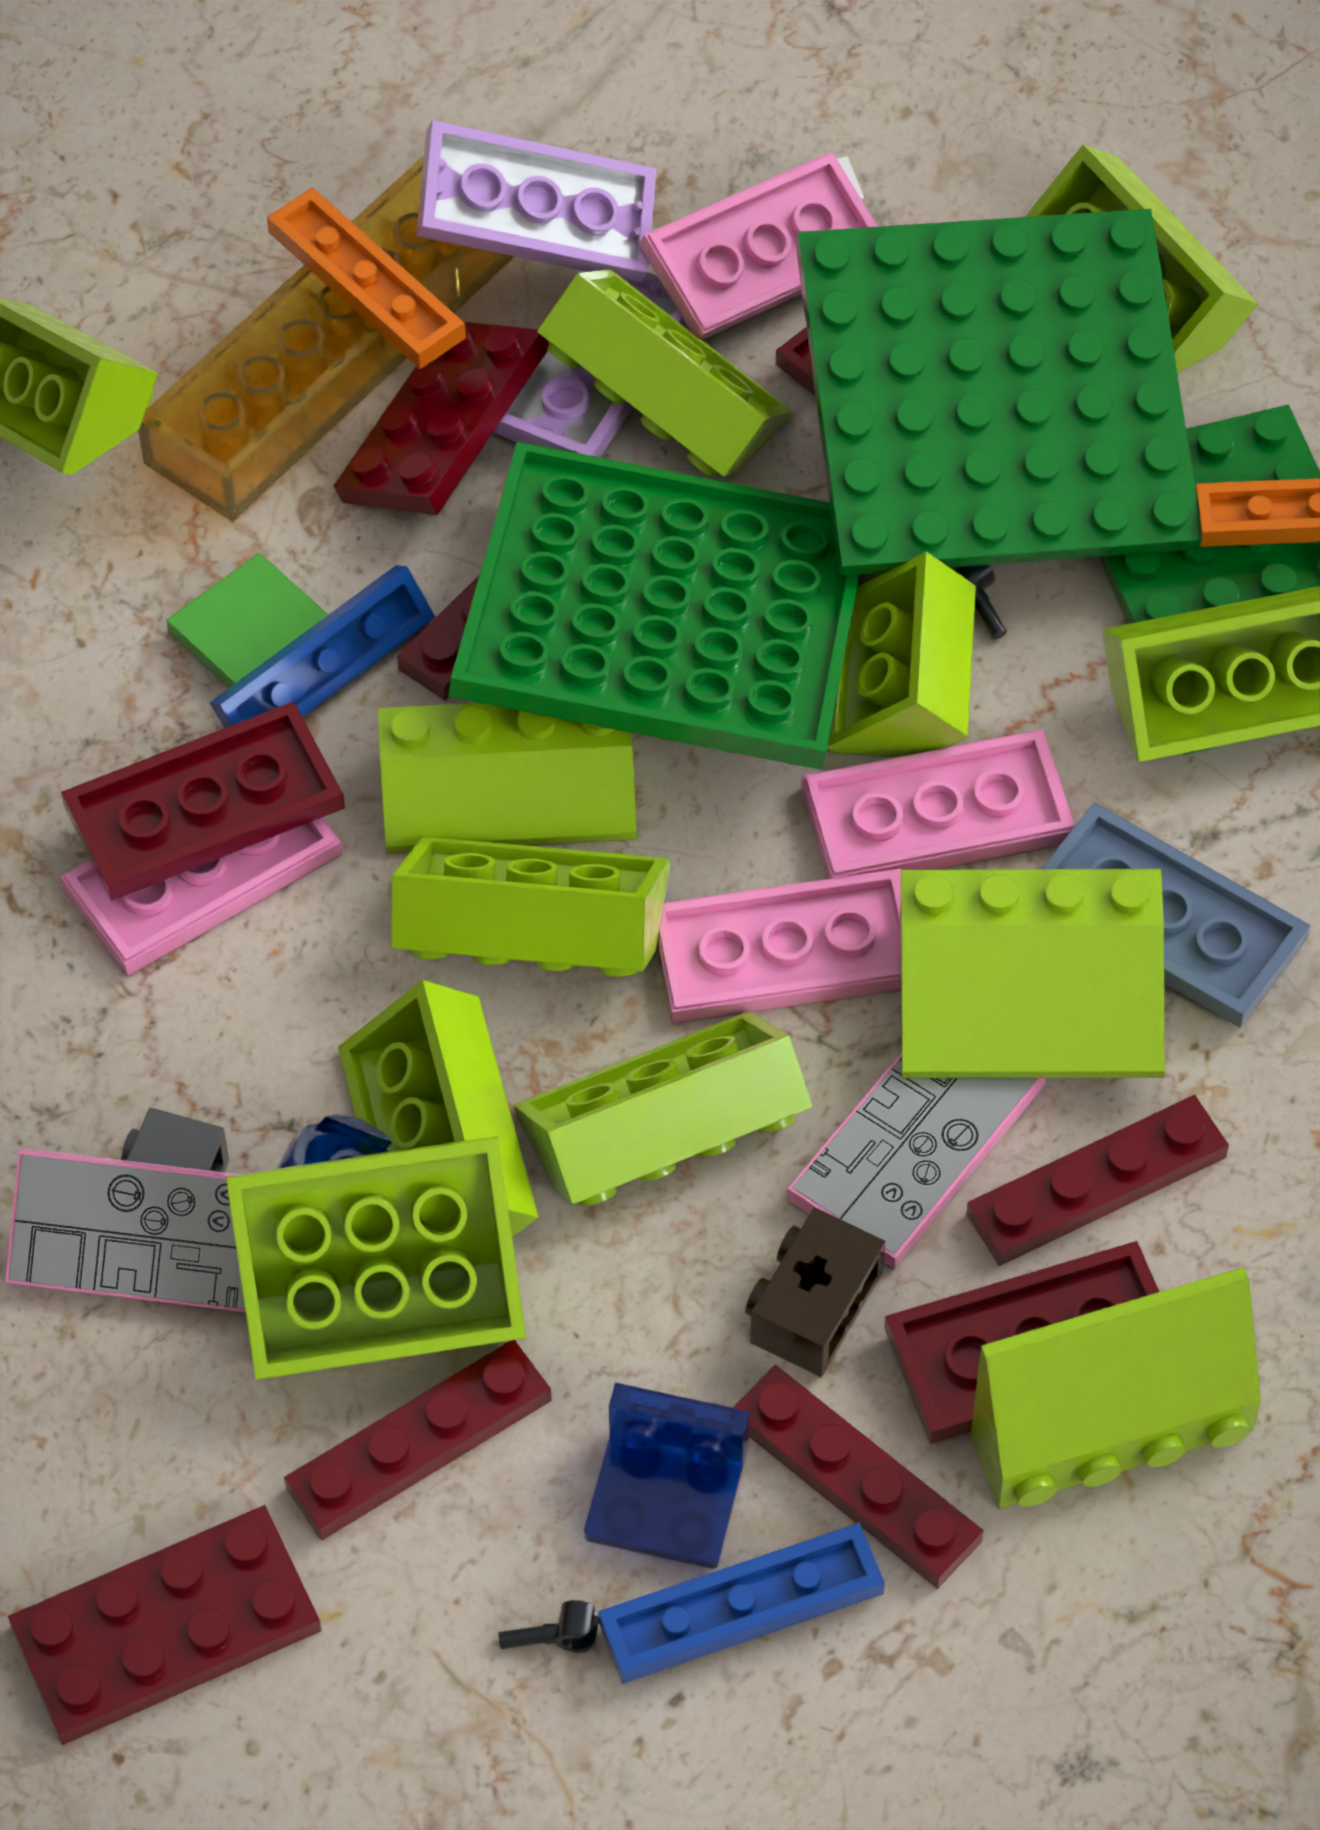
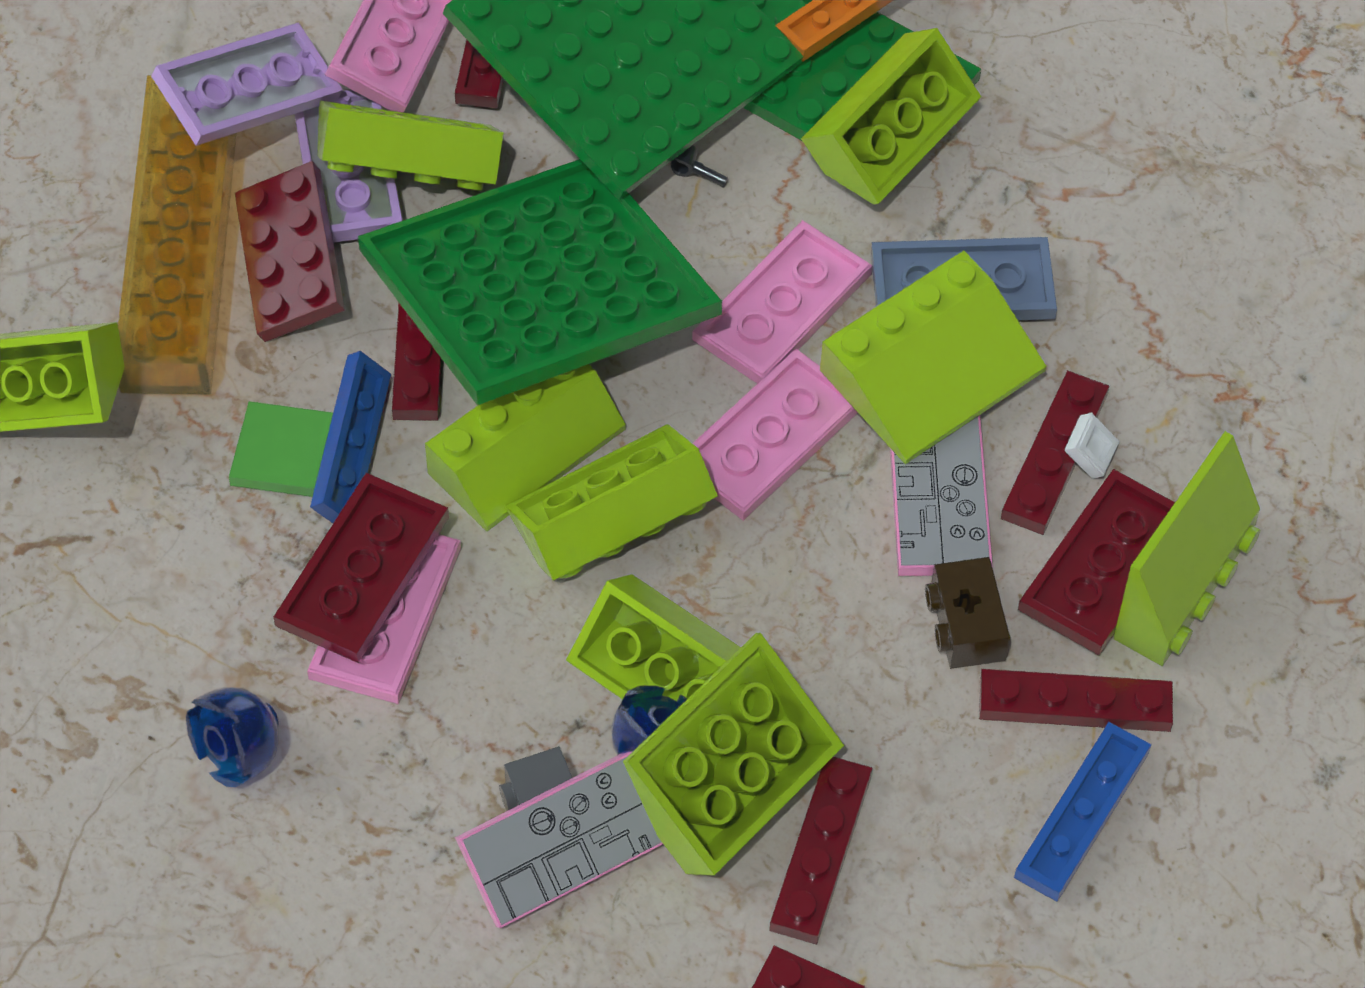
camera: 40 degrees left, 0 degrees up
(366, 278) = (186, 189): orange plate -> none
(574, 1631) = (1006, 893): black hand -> none
(665, 1107) = (791, 563): lime slope -> none
(668, 1476) = (982, 769): clear blue bracket -> none
(906, 663) = (701, 222): lime slope -> none
(1140, 1199) = (1091, 445): none -> white tile

